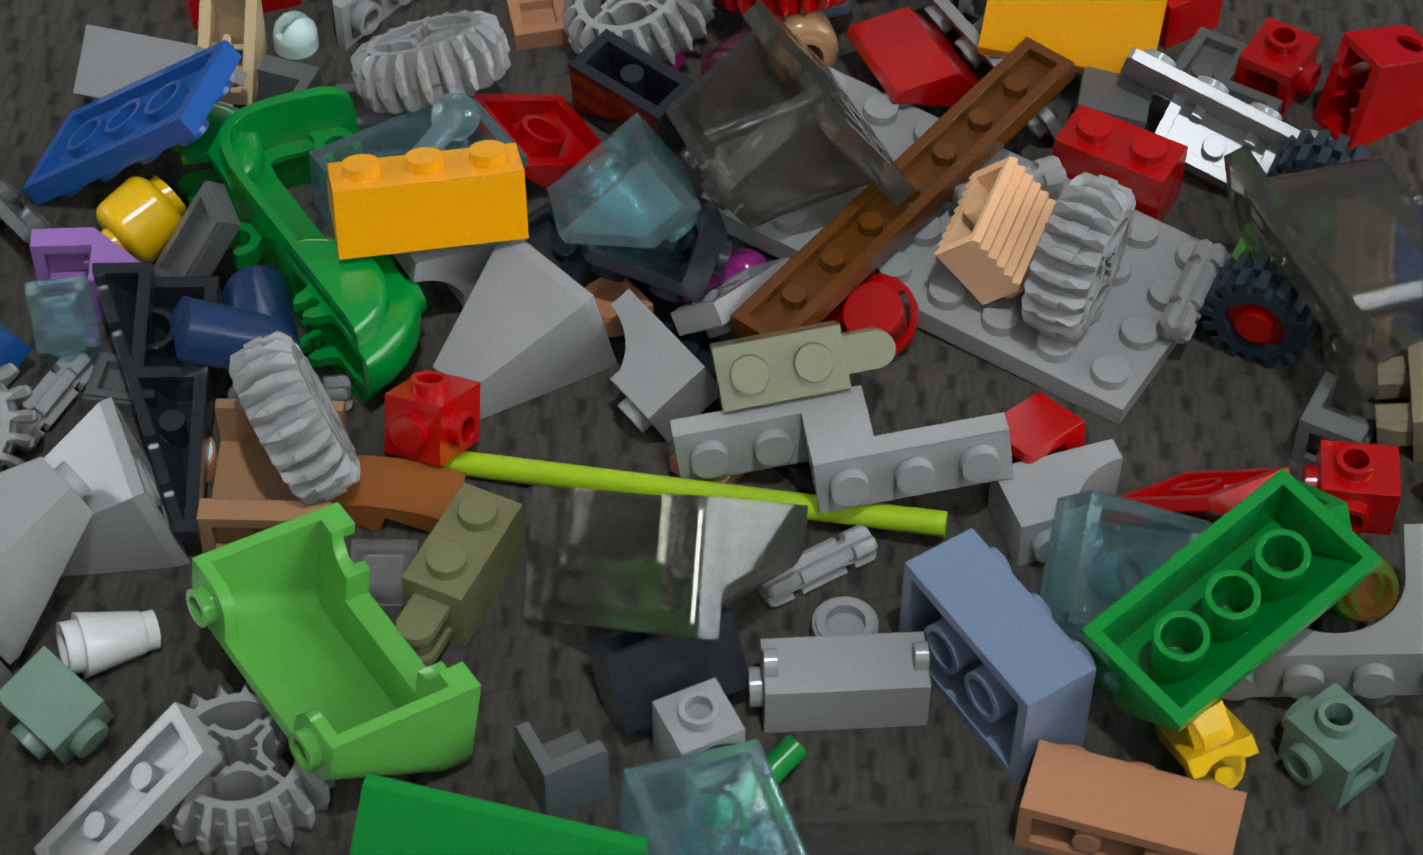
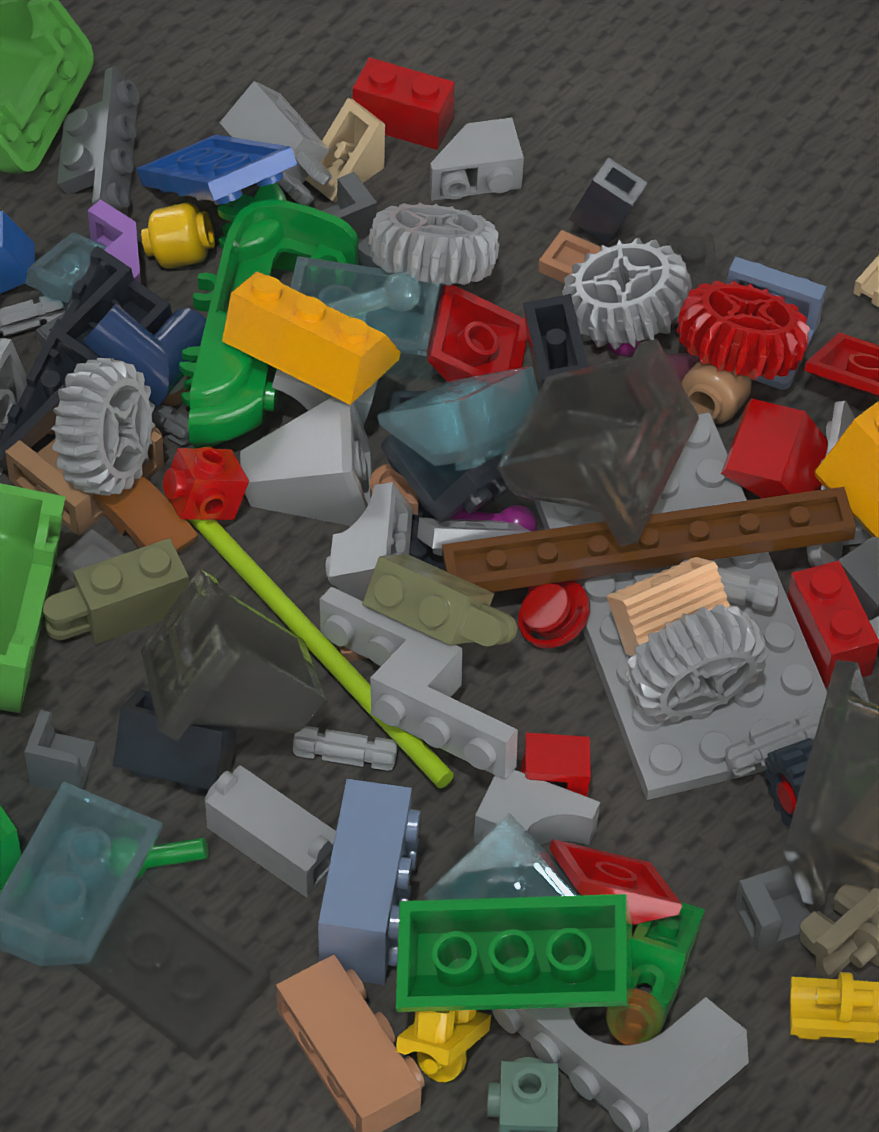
camera: 40 degrees right, 5 degrees up
(200, 235) = (186, 270): dark grey tile -> none
(295, 36) = (404, 170): light aqua hinge -> none
(694, 721) = (152, 790): light grey brick -> none
(844, 617) = (320, 796): light grey tile -> none
(1361, 476) = (737, 954): red brick -> none

